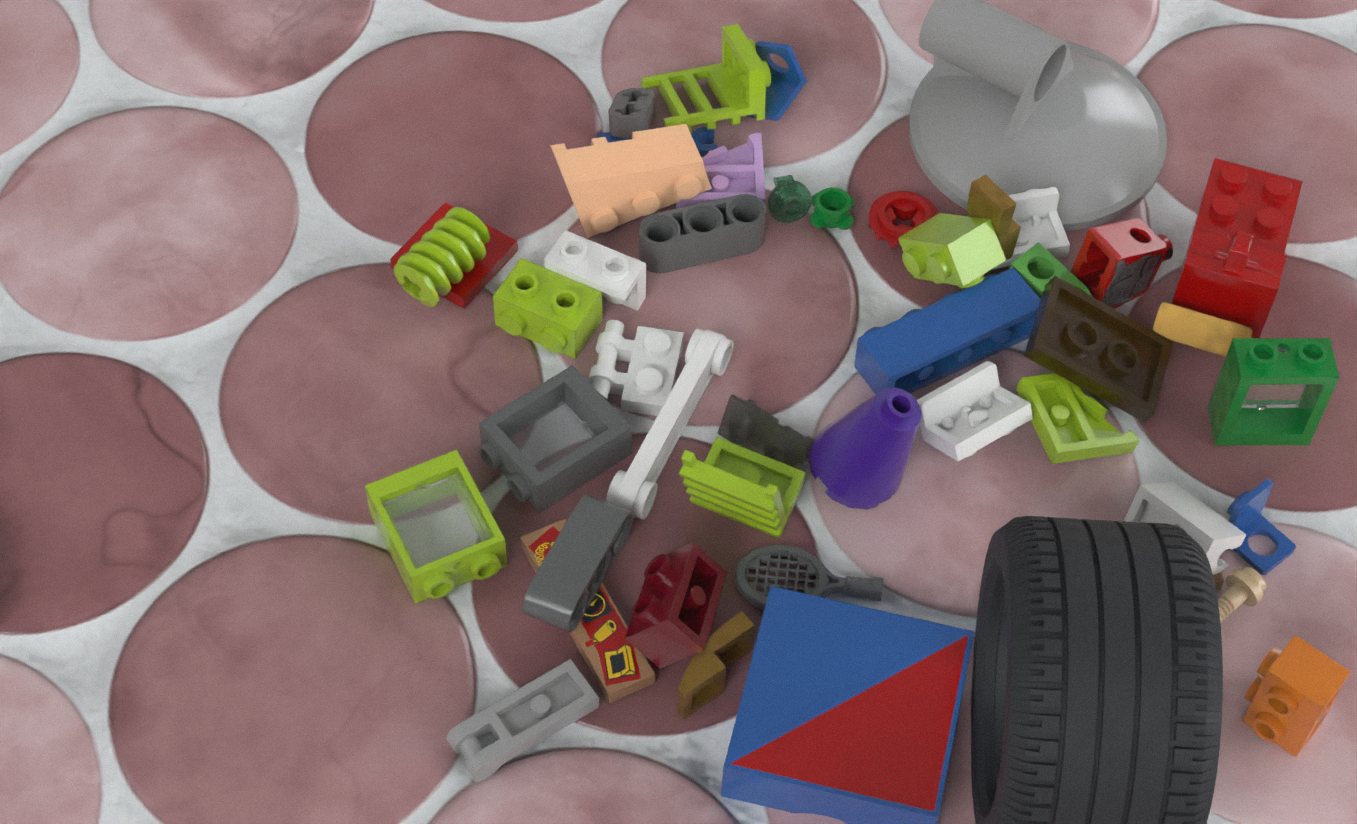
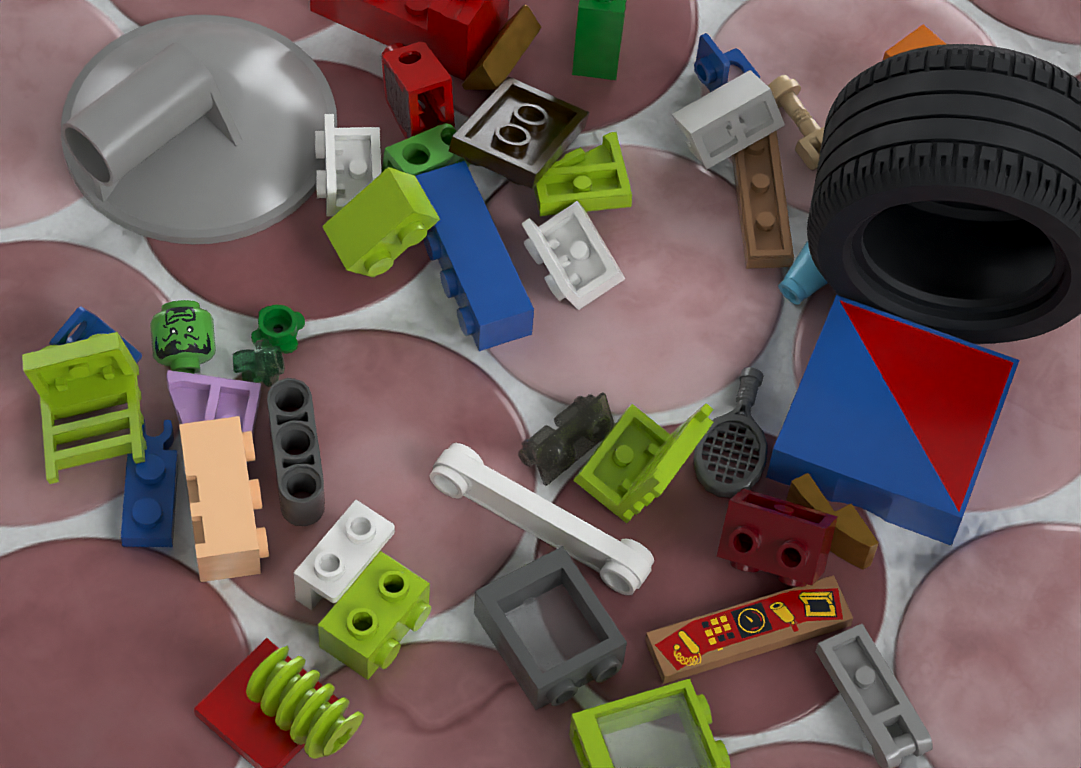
camera: 85 degrees left, 5 degrees up
(577, 563) = (717, 617): dark grey beam -> none
(631, 112) = (103, 502): dark grey beam -> none
(651, 370) = (463, 532): white plate -> none
(800, 141) = (183, 336): none -> bright green head
(867, 449) = (619, 340): dark purple cone -> none
(900, 205) = (313, 251): red gear -> none
(992, 203) = (368, 163): pearl gold slope -> none

